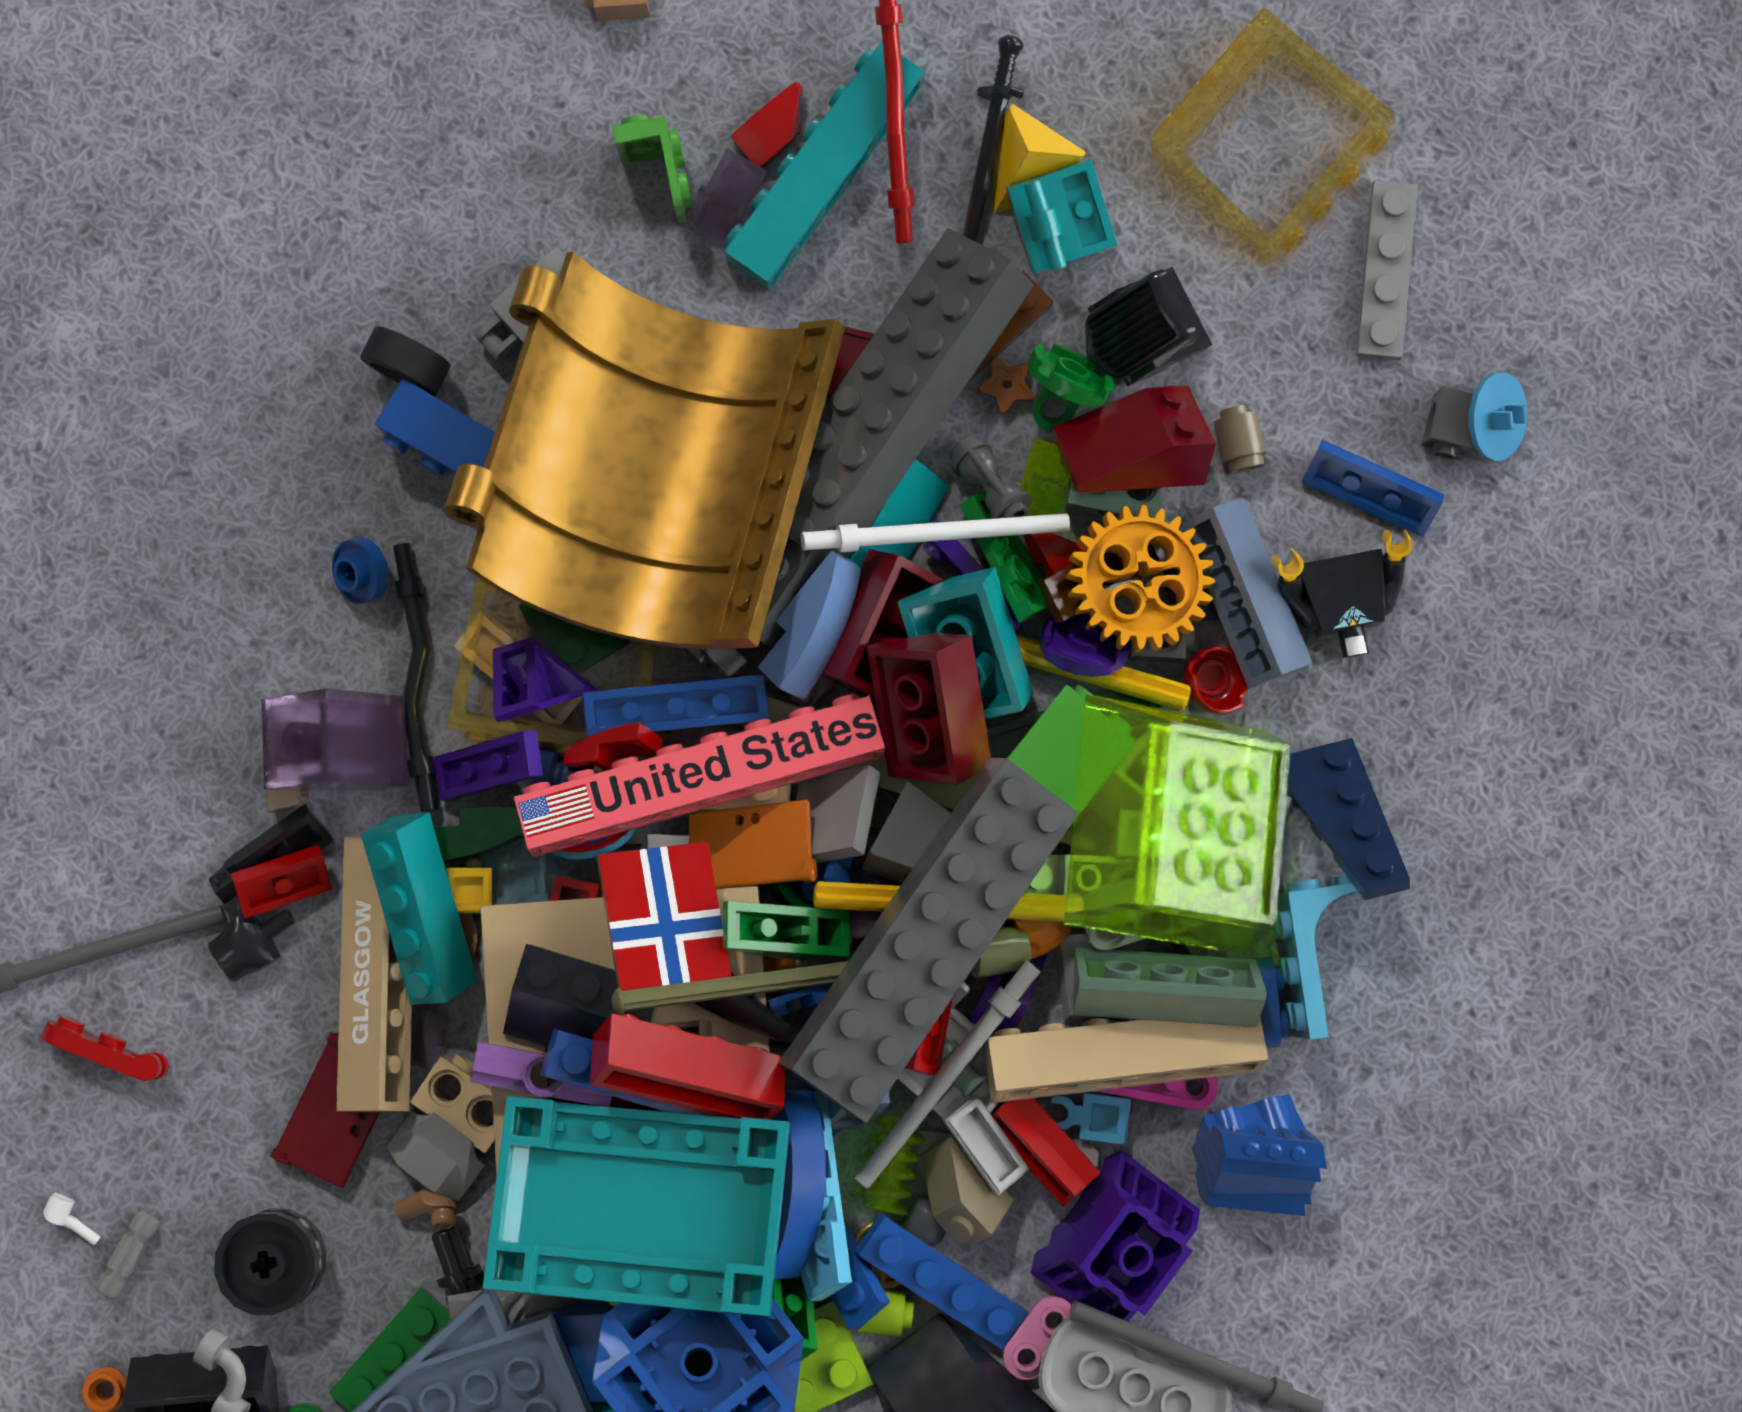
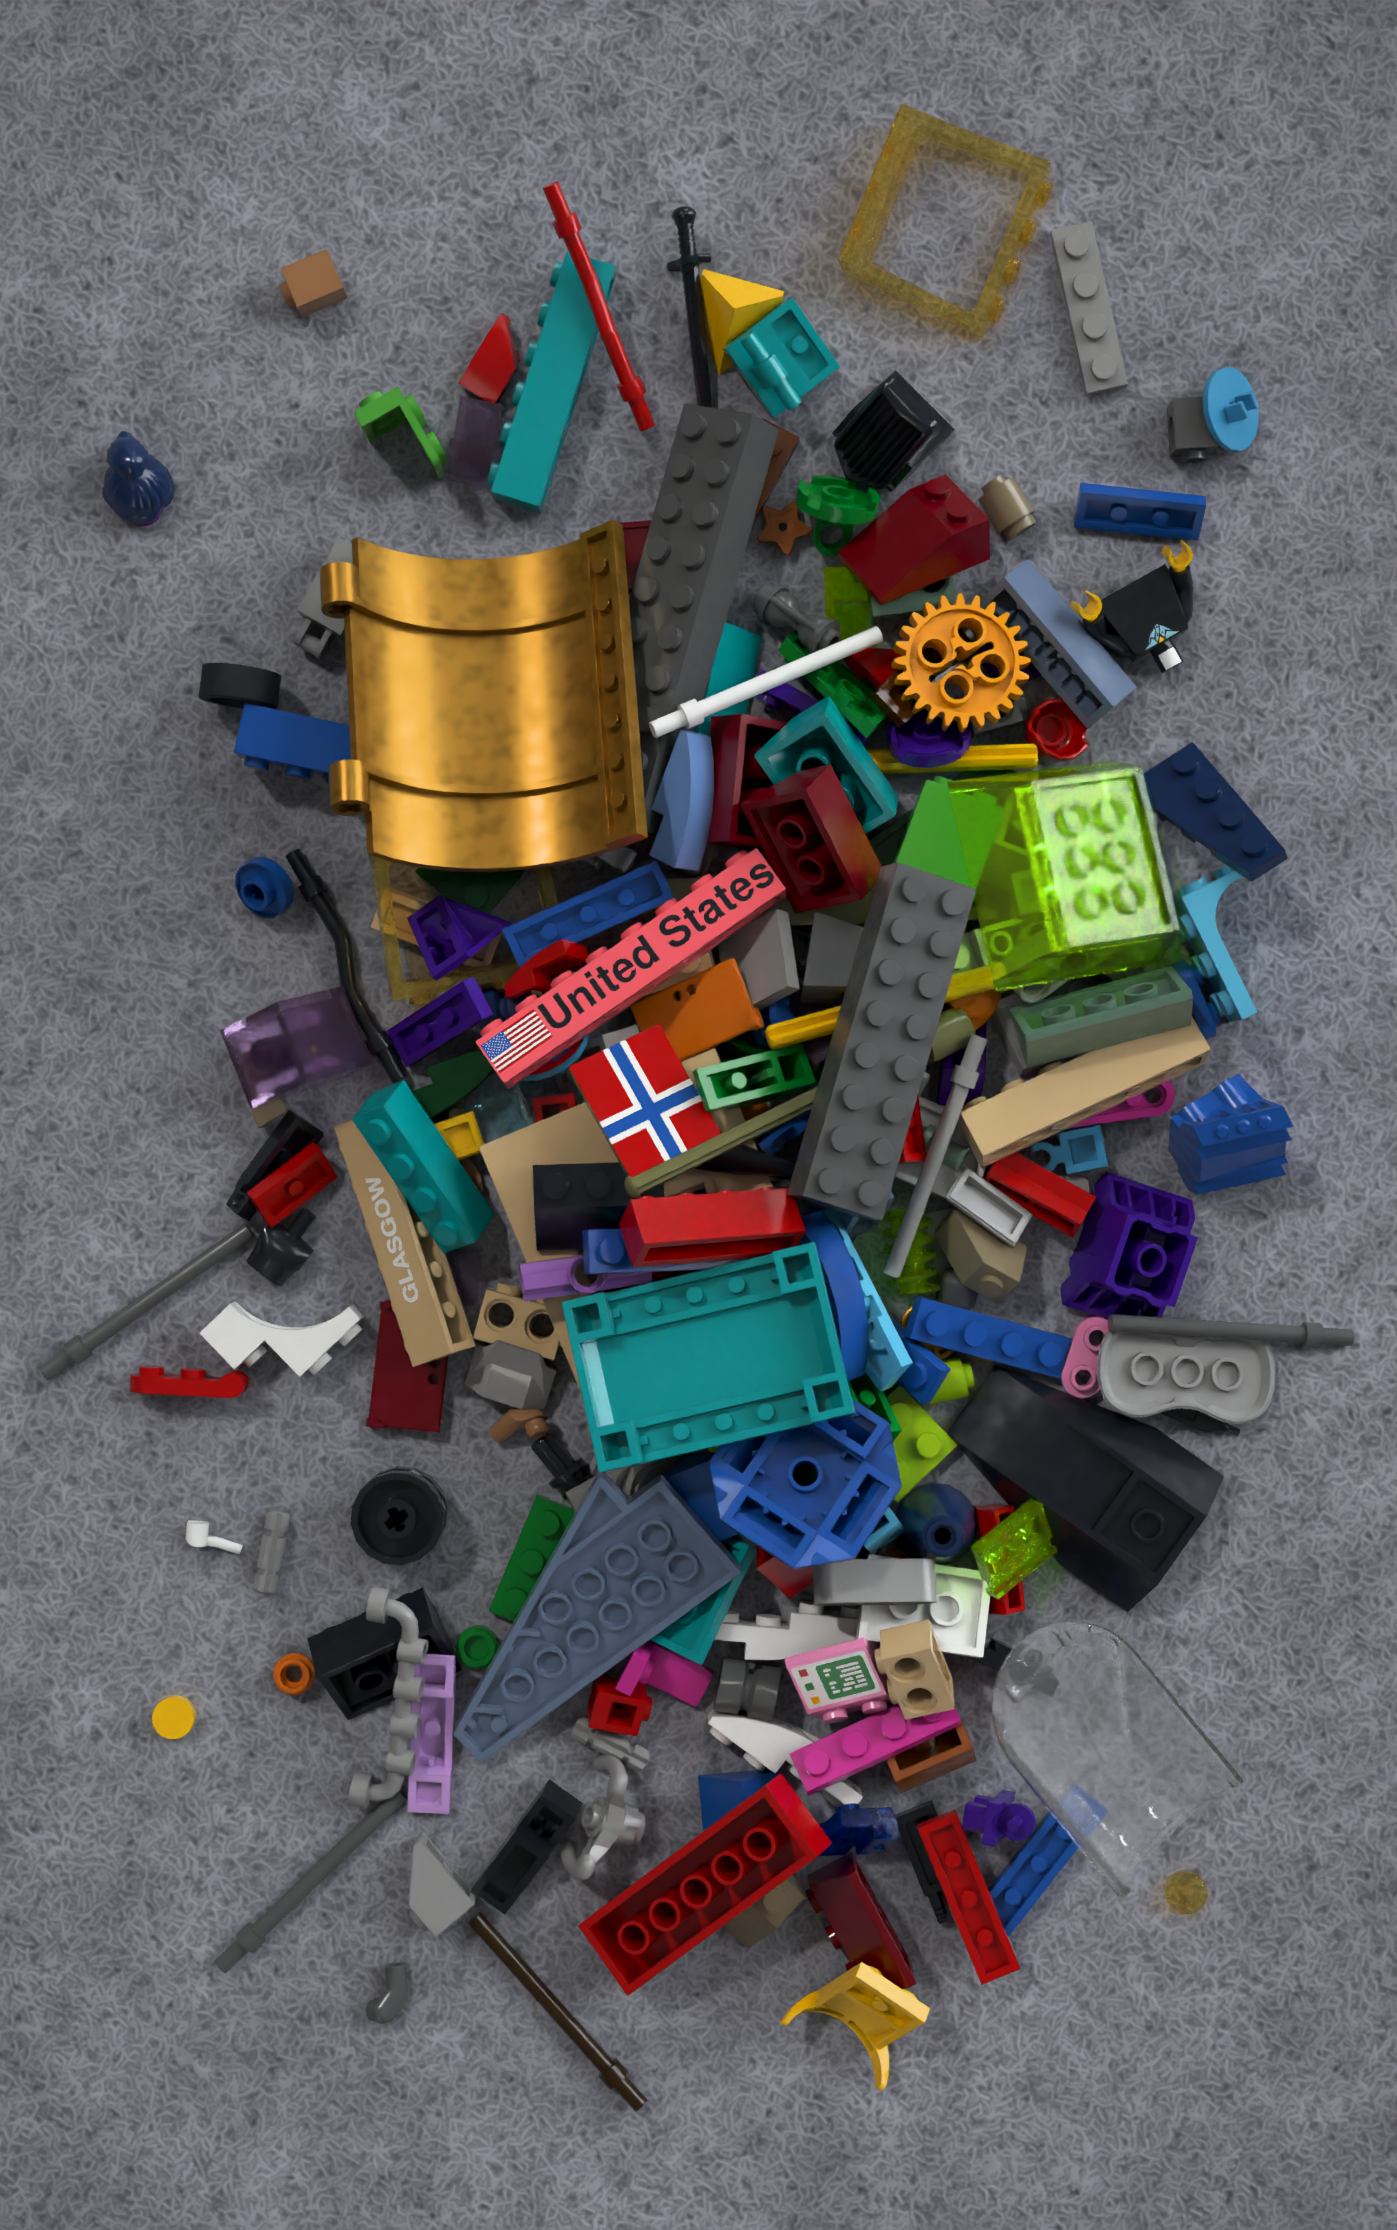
camera: 15 degrees left, 5 degrees up
(174, 1018) = (240, 1338): none -> white arch
(375, 126) = (136, 482): none -> dark blue hair

